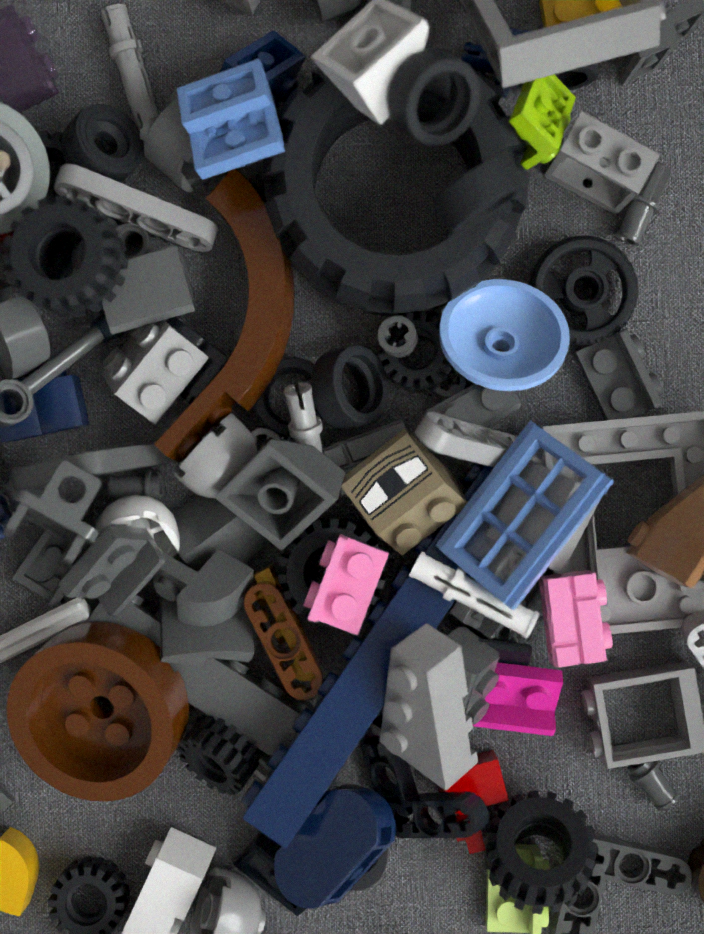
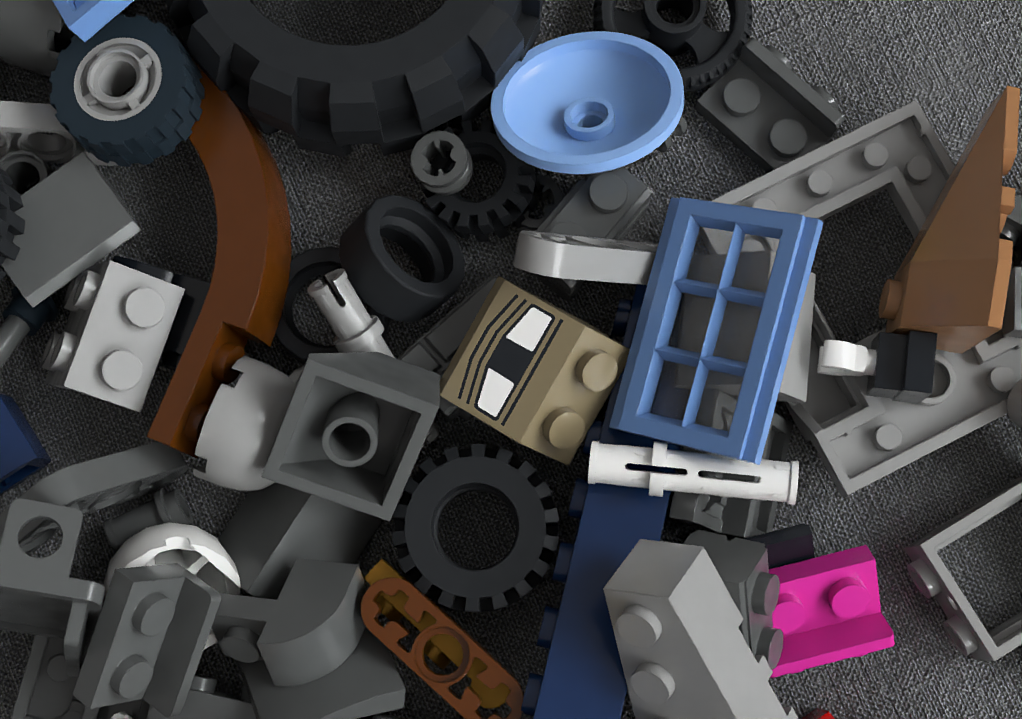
camera: 25 degrees left, 10 degrees down
(223, 241) = (147, 118): none -> black wheel
(347, 583) = (502, 530): bright pink bracket -> none
(574, 618) = (851, 453): bright pink brick -> none
(622, 574) = (895, 365): none -> black piece

